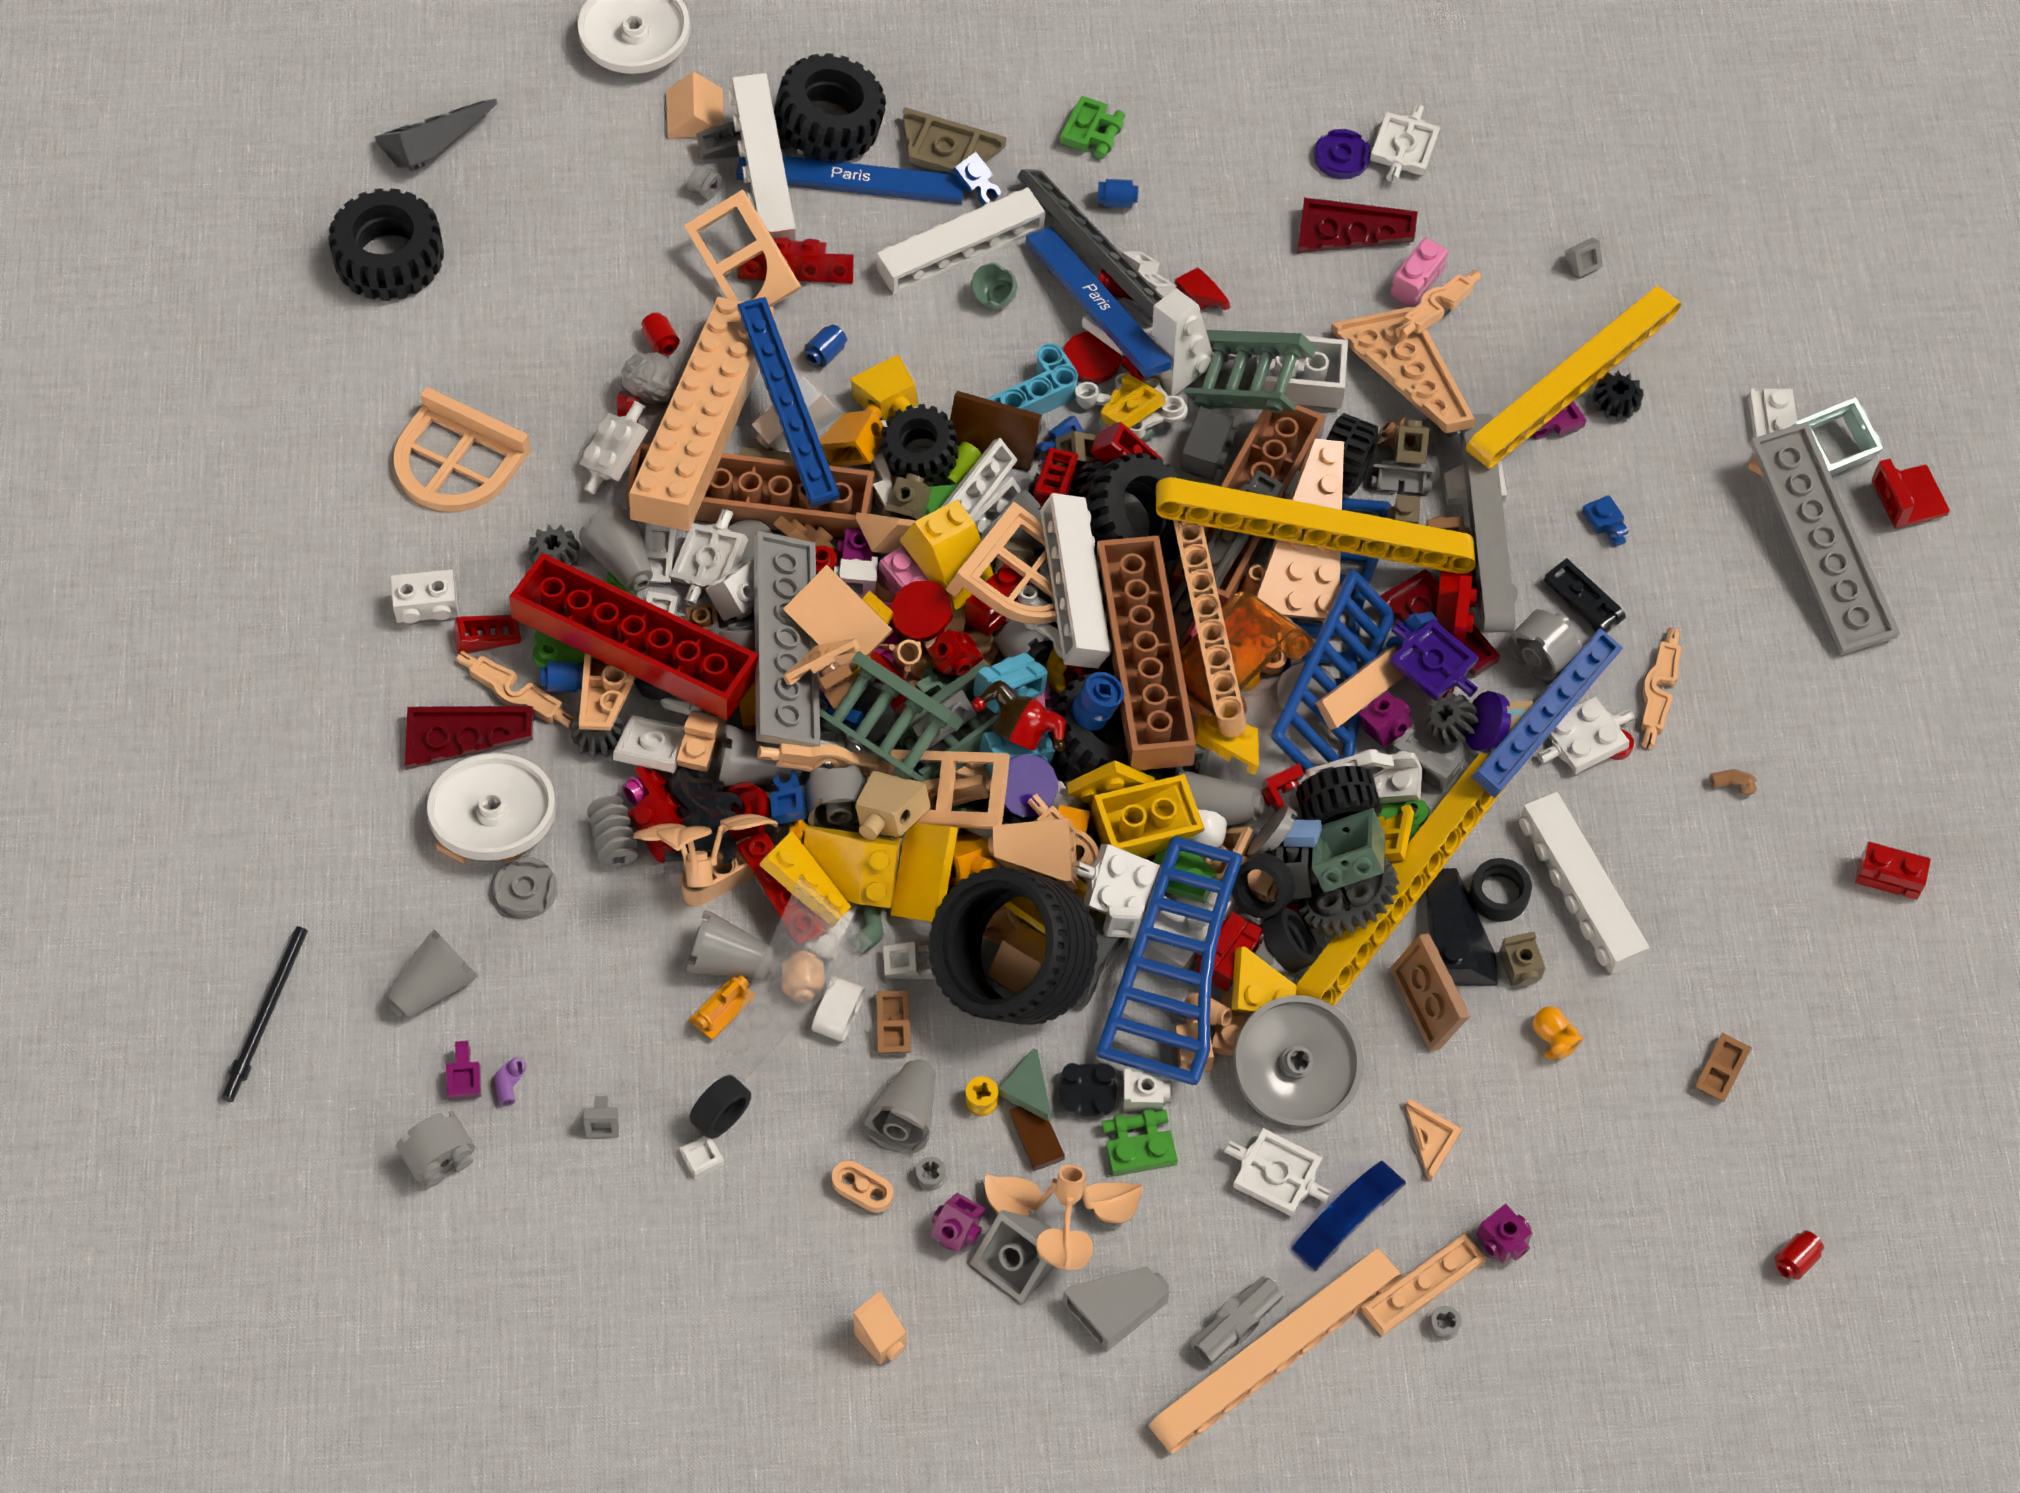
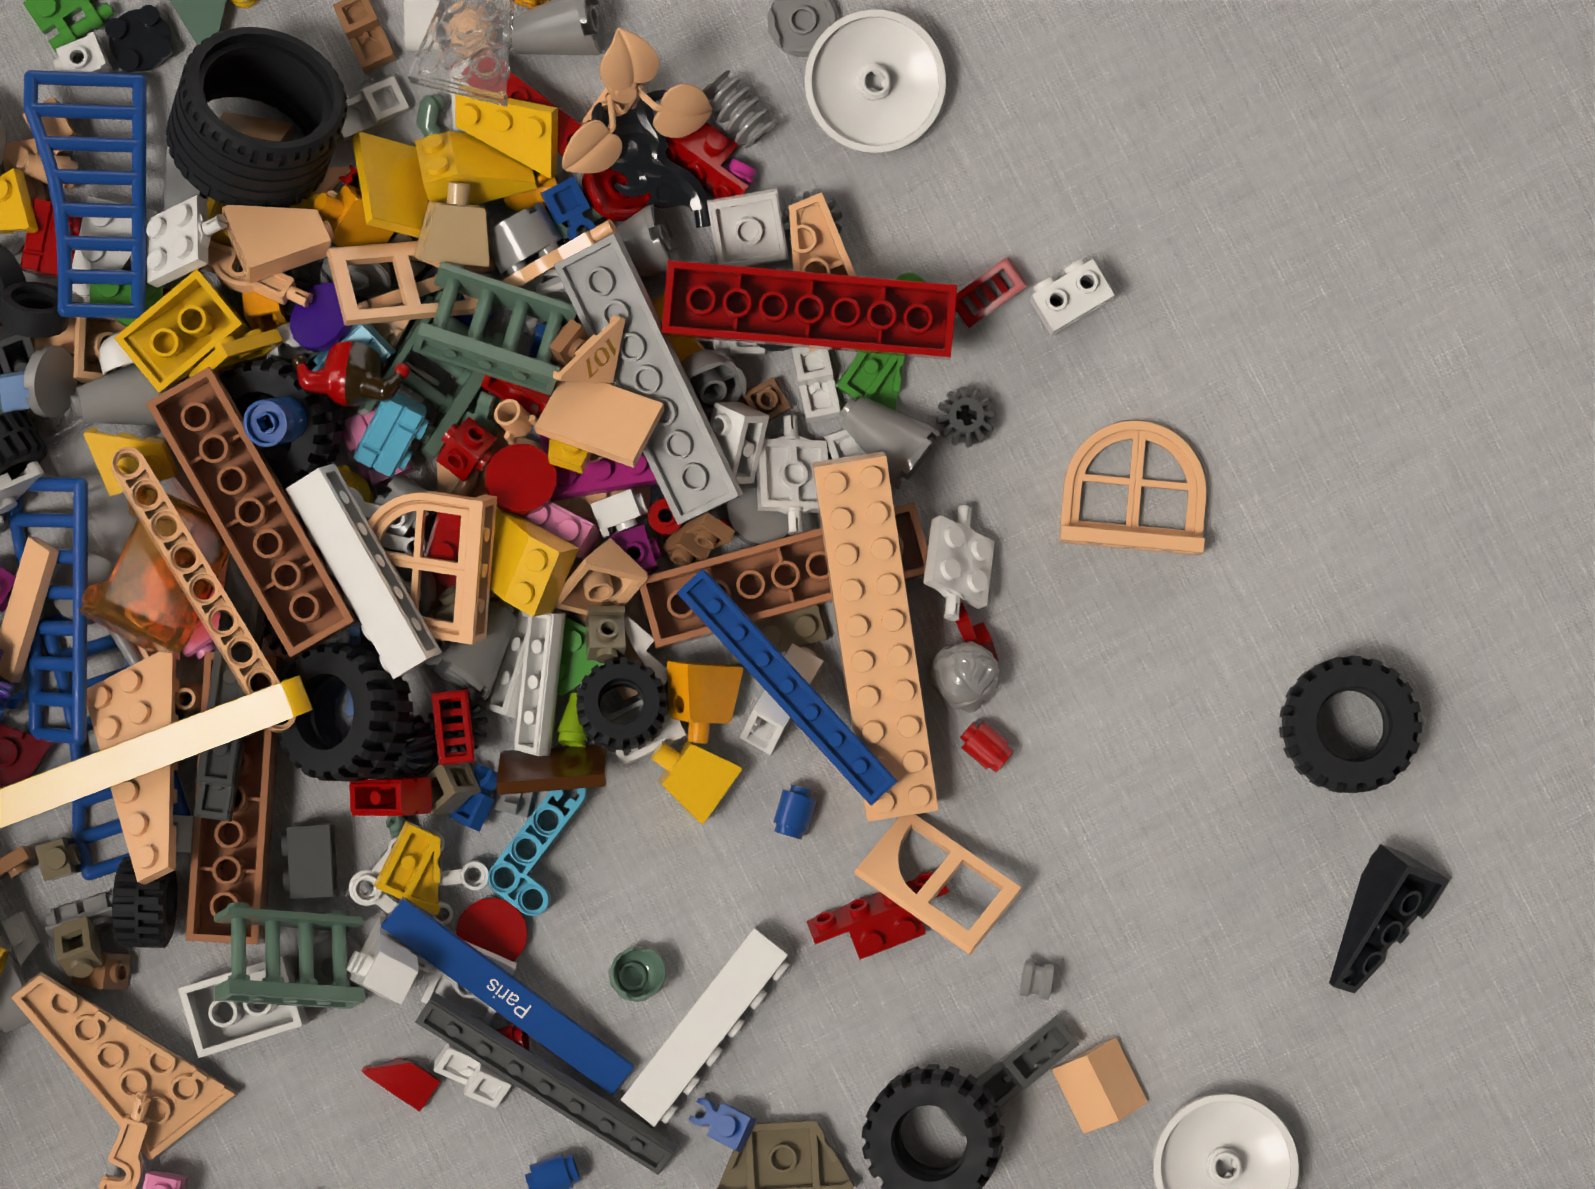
camera: 165 degrees right, 25 degrees up
(459, 731) = (959, 161): dark red wing -> none
(502, 681) = (943, 245): light nougat piece -> none
(561, 676) = (881, 263): blue brick -> none
(700, 740) = (694, 237): light nougat brick -> none
(762, 154) = (977, 1028): white brick -> none
(869, 179) = (875, 1067): blue tile -> none
(956, 703) = (439, 379): light grey hinge -> none
(1122, 922) = (161, 204): white tile -> none
(1284, 780) = (63, 447): red bracket -> none

